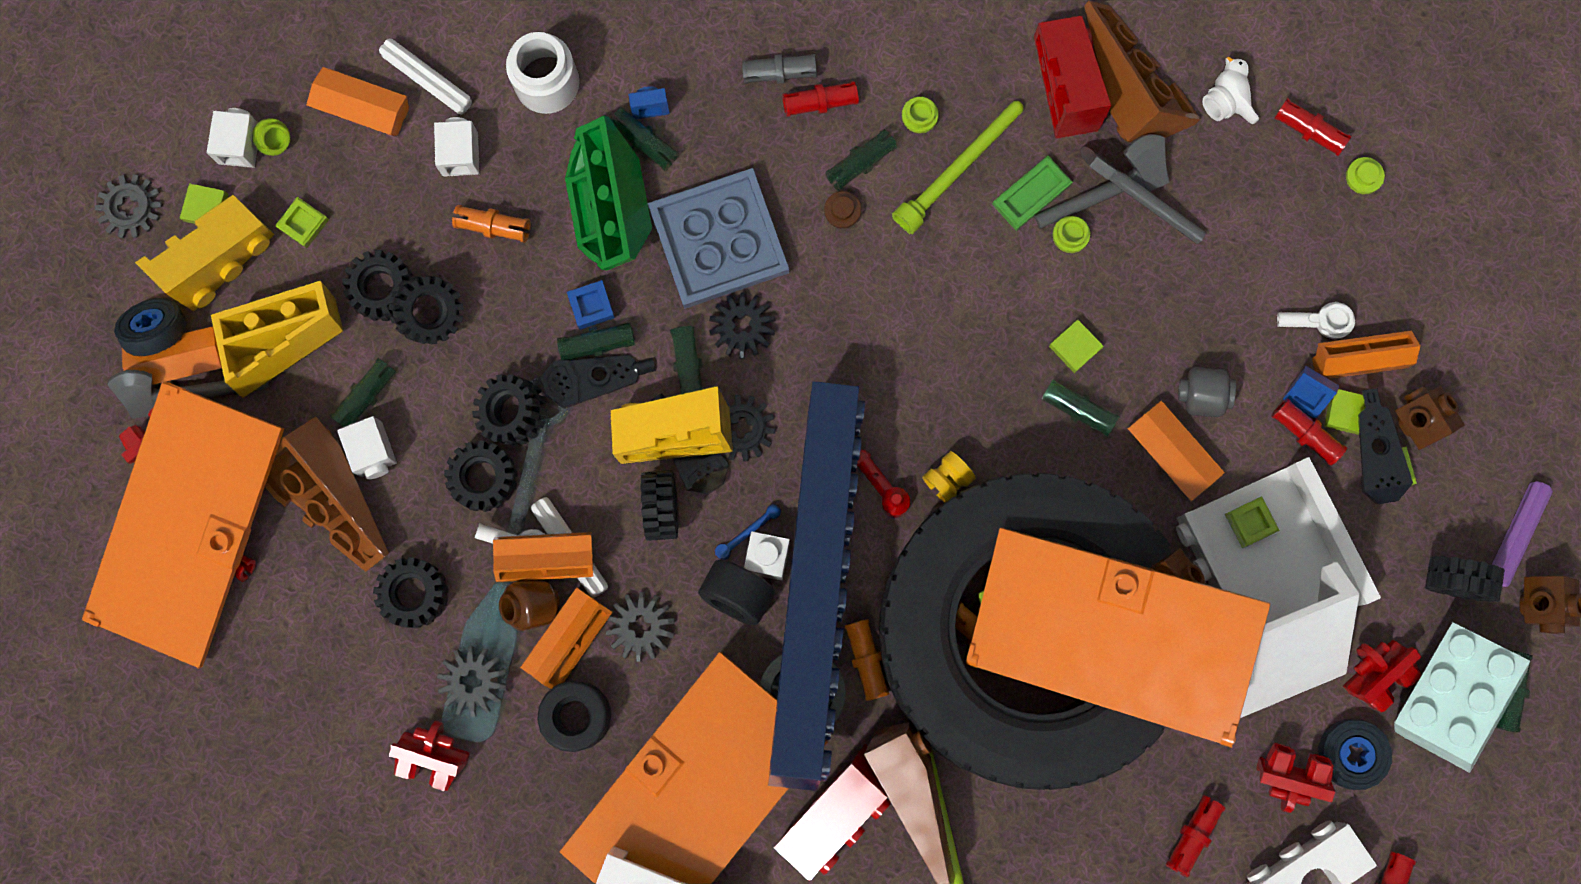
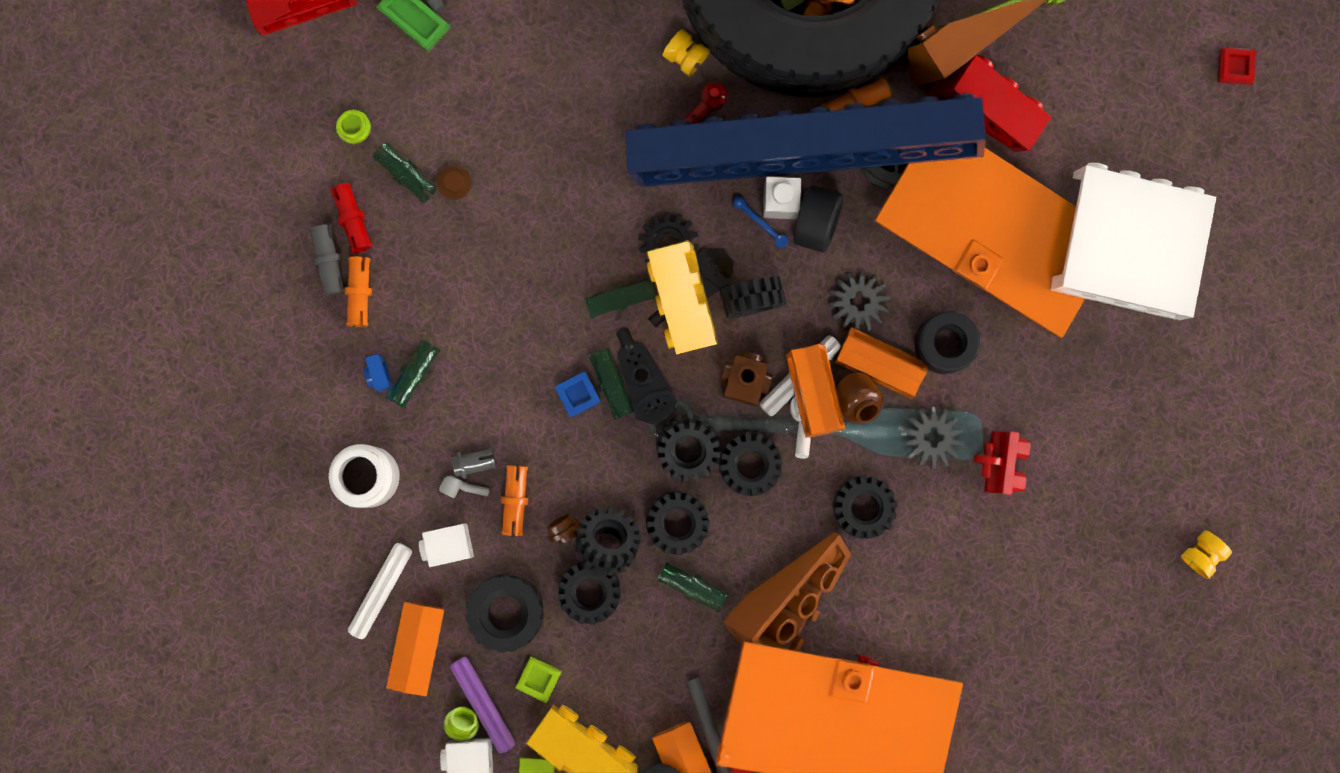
camera: 105 degrees left, 5 degrees up
(273, 334) = (652, 677): yellow wedge -> none
(287, 162) = (482, 705): none -> medium lavender axle
(367, 169) = (479, 621): none -> black tyre
(367, 448) = (743, 571): white brick -> none
(415, 375) = (696, 533): none -> black tyre
(450, 267) = (563, 529): none -> reddish brown plate
(521, 164) = (451, 486): none -> light grey hand
(539, 185) = (473, 462): none -> dark grey pin
(561, 476) = (738, 389): none -> reddish brown brick
(606, 195) = (477, 395): green wedge -> none
(718, 238) = (497, 289): sand blue plate -> none
(740, 95) = (358, 291): none -> orange pin
(743, 339) = (578, 270): black gear -> none
(911, 214) = (449, 119): lime piece -> none

